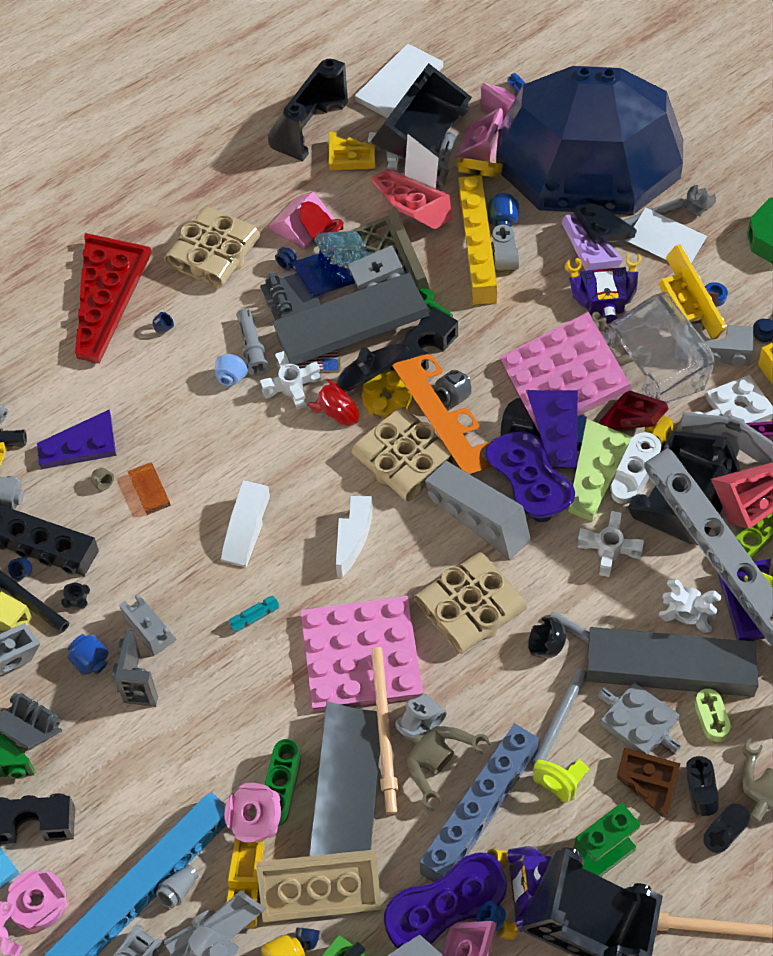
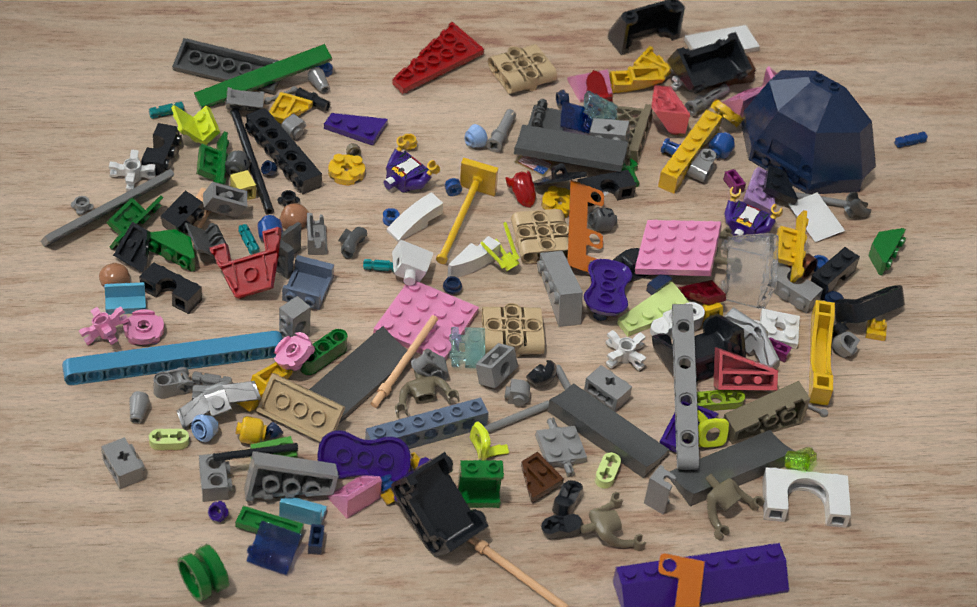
camera: 25 degrees right, 10 degrees down
(69, 683) = (248, 239): none -> teal axle
(101, 616) = (292, 214): none -> nougat hair
(105, 497) = (355, 168): none -> yellow plate
(116, 734) = (253, 272): none -> red wing
(149, 488) = (376, 171): clear orange tile -> none
(154, 420) = (411, 139): none -> yellow plate
(162, 322) = (458, 92): dark blue hinge -> none
(175, 888) = (223, 365): light grey cone -> none
(176, 916) = (209, 379): none -> light grey axle
(188, 468) = (407, 172): none -> torso
(188, 698) = (309, 281): none -> sand blue panel
(194, 604) = (351, 239): none -> dark grey piece
(209, 534) = (390, 212): none -> blue bush
(218, 766) = (294, 318): none -> light grey brick
(255, 453) = (453, 187): none -> blue bush
(281, 424) = (475, 177): none -> yellow tile
(290, 590) = (410, 262): none -> white torso
(291, 372) = (507, 161): white pin -> none
(347, 182) = (635, 78): none -> yellow slope
(355, 587) = (452, 285): none -> dark blue plate
(394, 511) = (508, 260): none -> neon yellow plant
(420, 163) = (686, 87): white sticker -> none
(446, 656) = (474, 346): none -> clear light blue plate
(453, 247) = (669, 146): none -> blue bush
(493, 664) = (496, 365): none -> light grey brick
(540, 682) = (517, 392): none -> light grey plate
(549, 247) = (734, 180): none -> magenta piece
(557, 422) = (647, 270): dark purple wing -> none
(620, 614) = (608, 388): none -> light grey brick
(682, 81) = (910, 139): none -> blue axle
(689, 605) = (642, 404): white pin -> none
(743, 293) = (838, 267): none -> black arch

